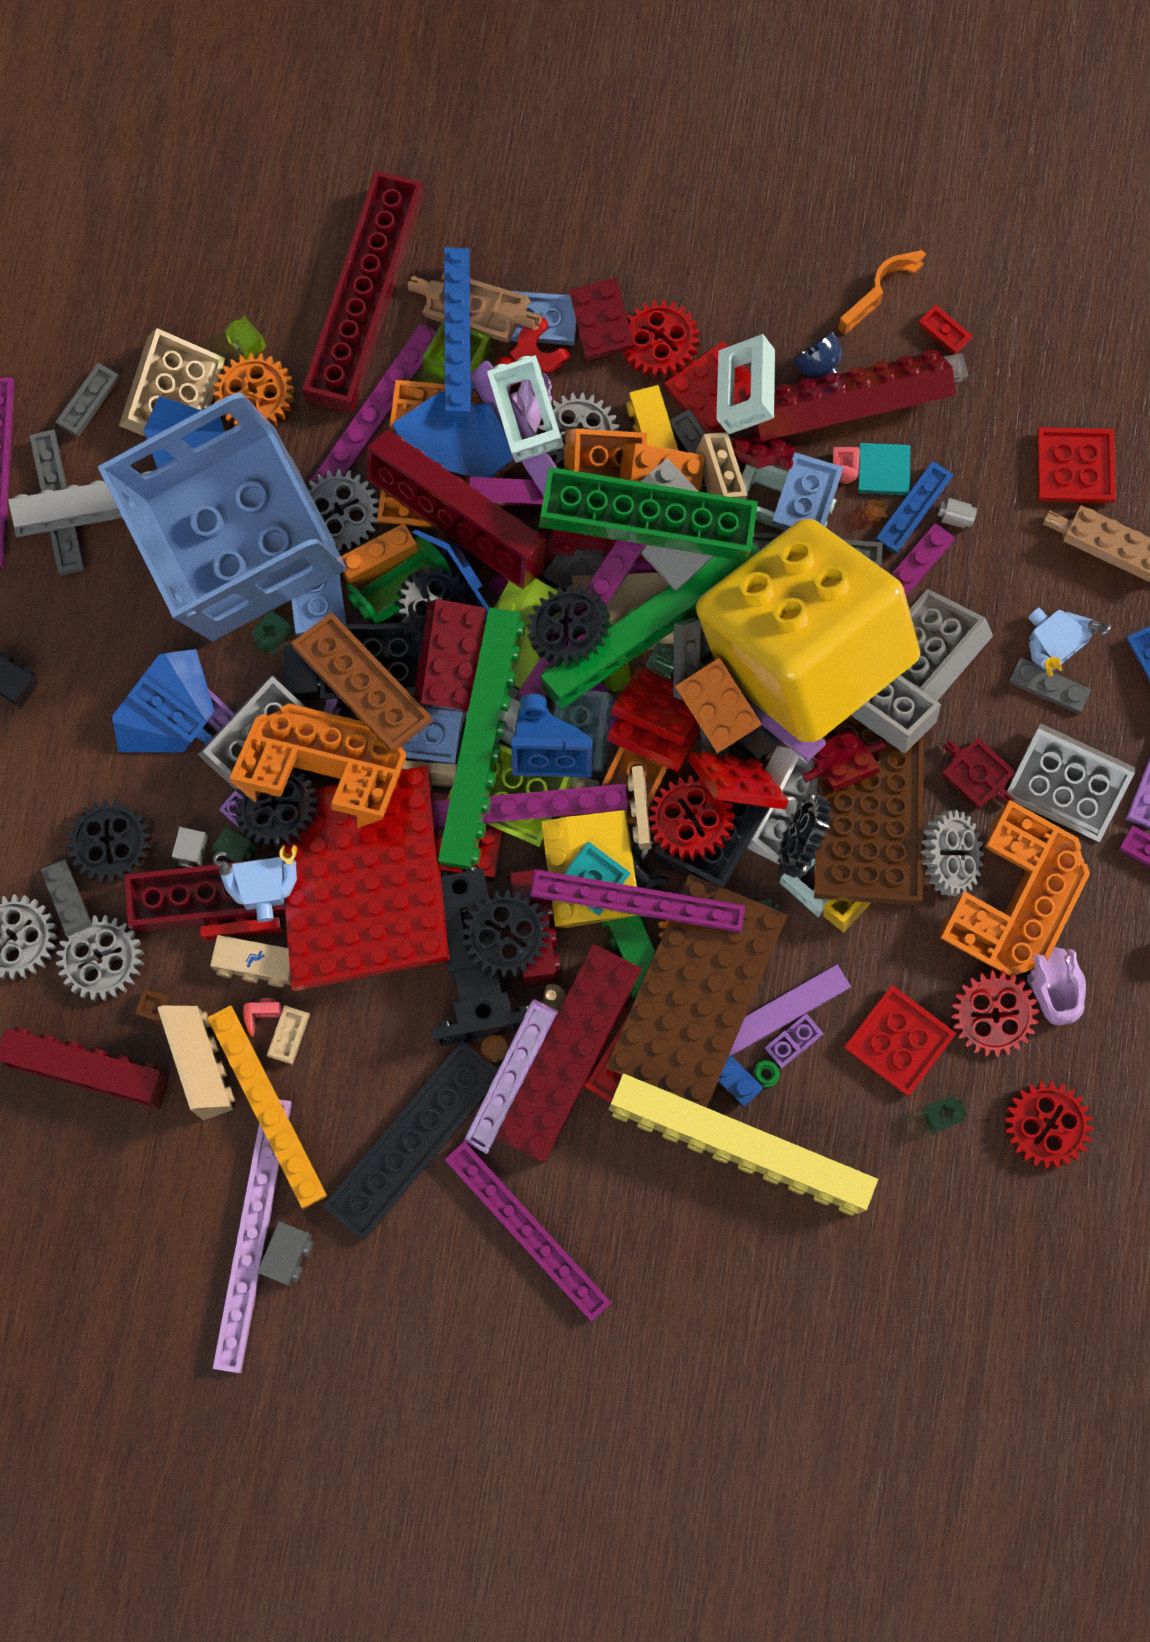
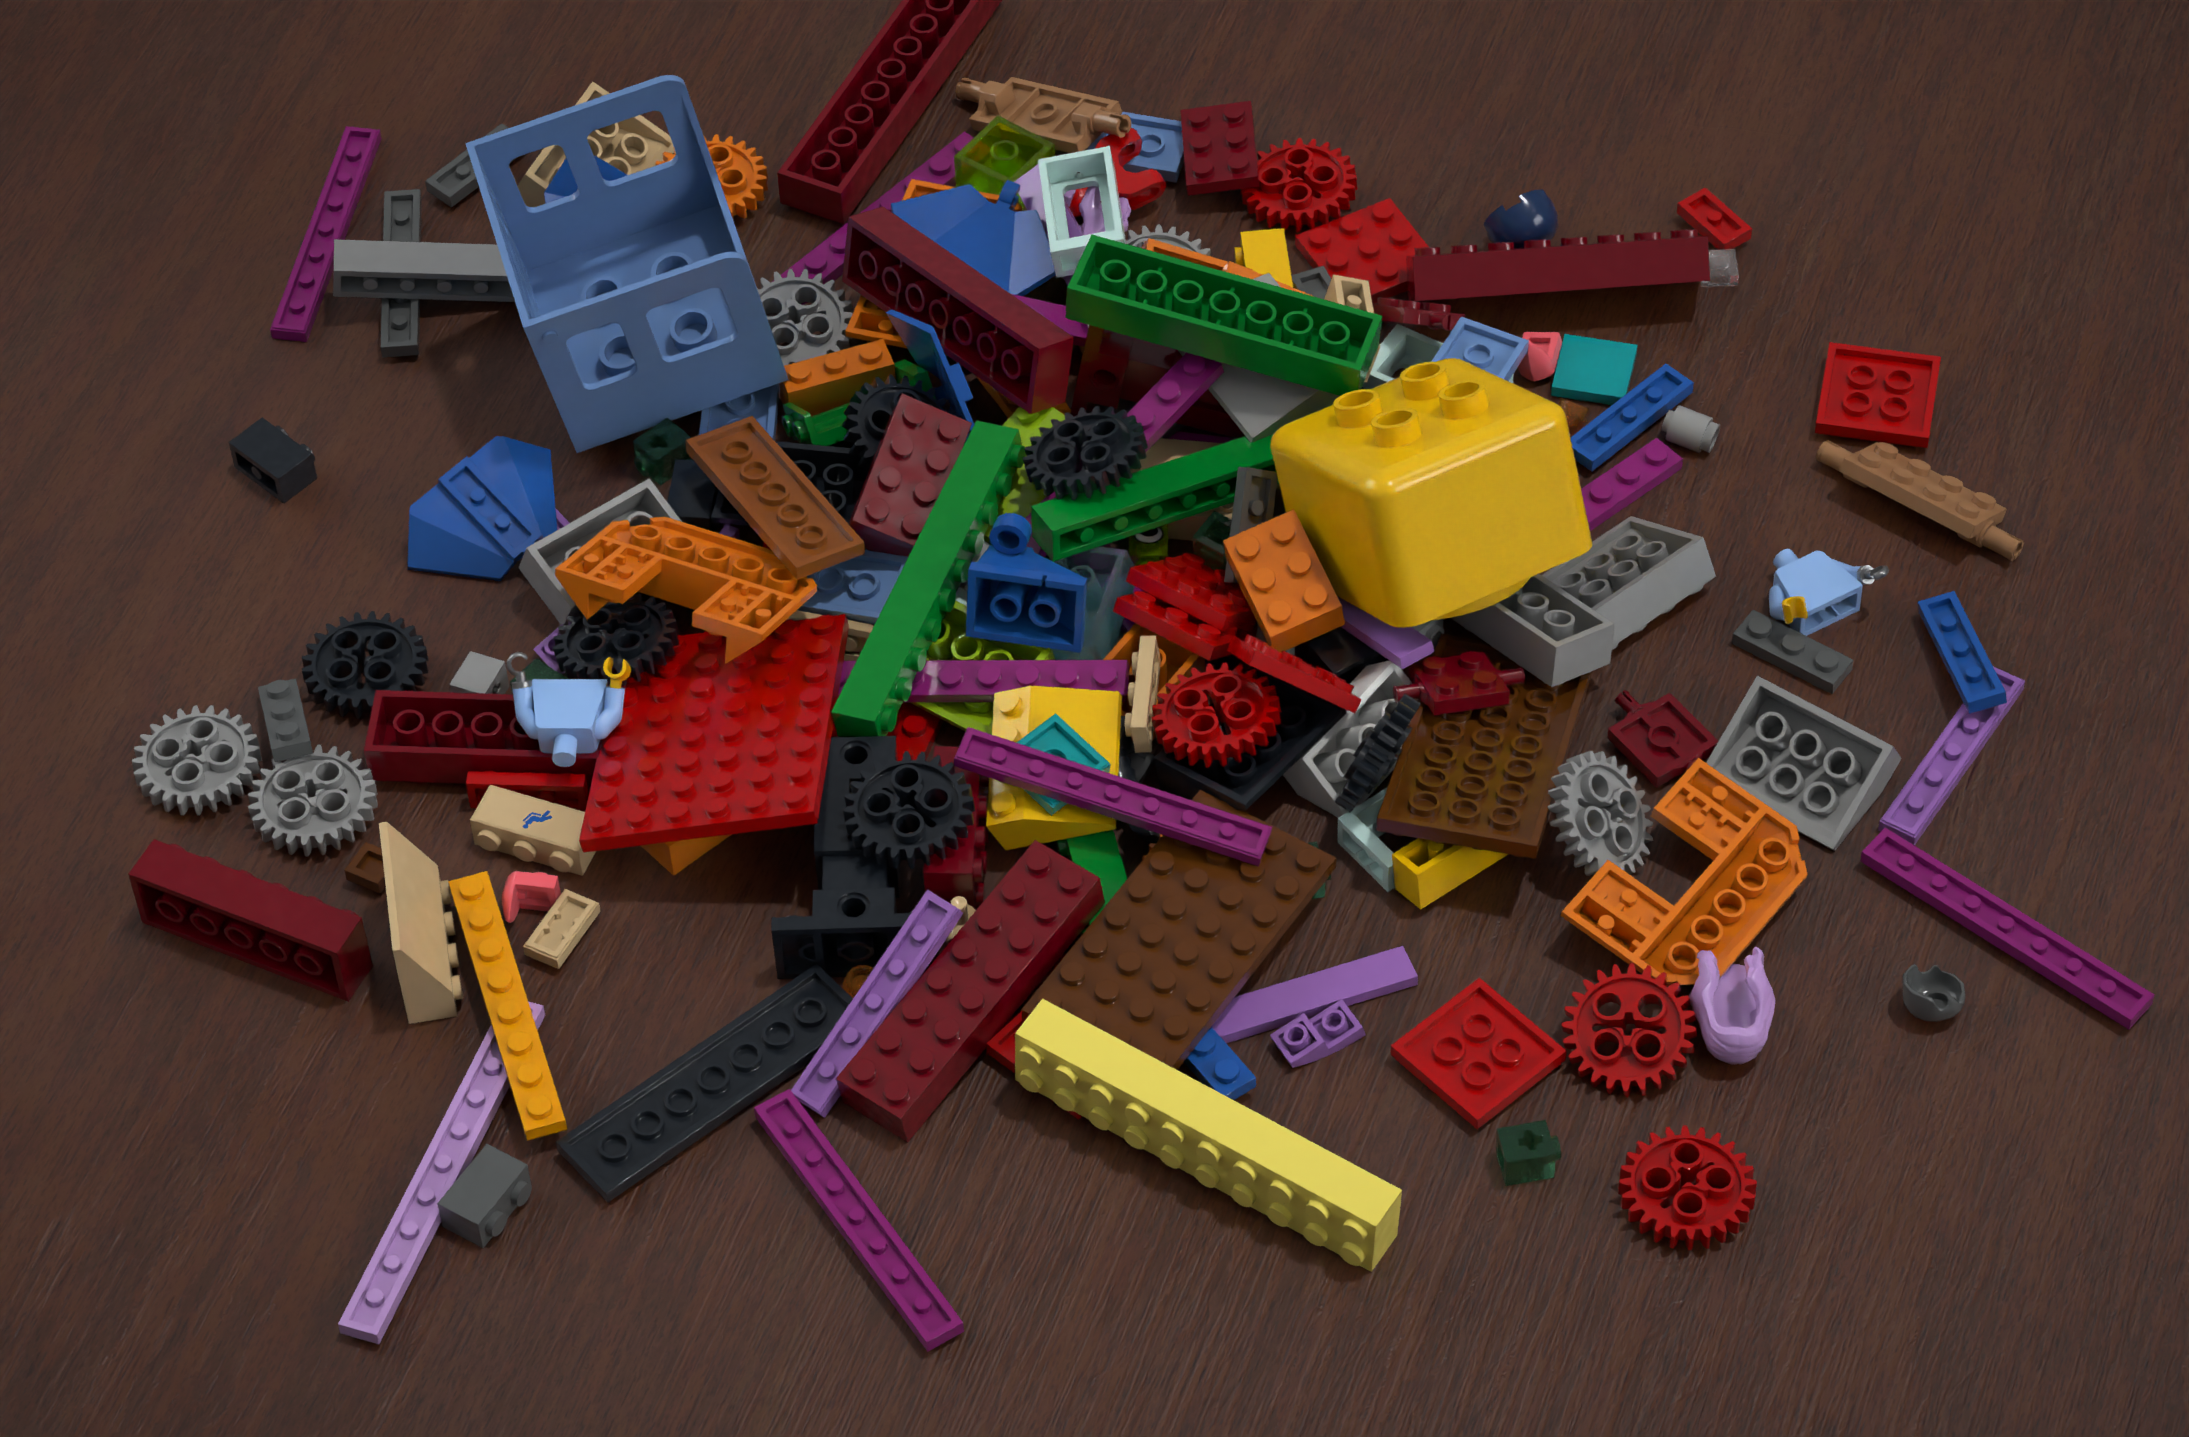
camera: 10 degrees right, 25 degrees down
(245, 338) = (716, 117): clear neon green brick -> none
(457, 332) = (1009, 129): blue plate -> none
(761, 402) = (1419, 239): light aqua piece -> none
(770, 1066) = (1267, 1060): green plate -> none
(907, 262) = (1613, 173): orange piece -> none

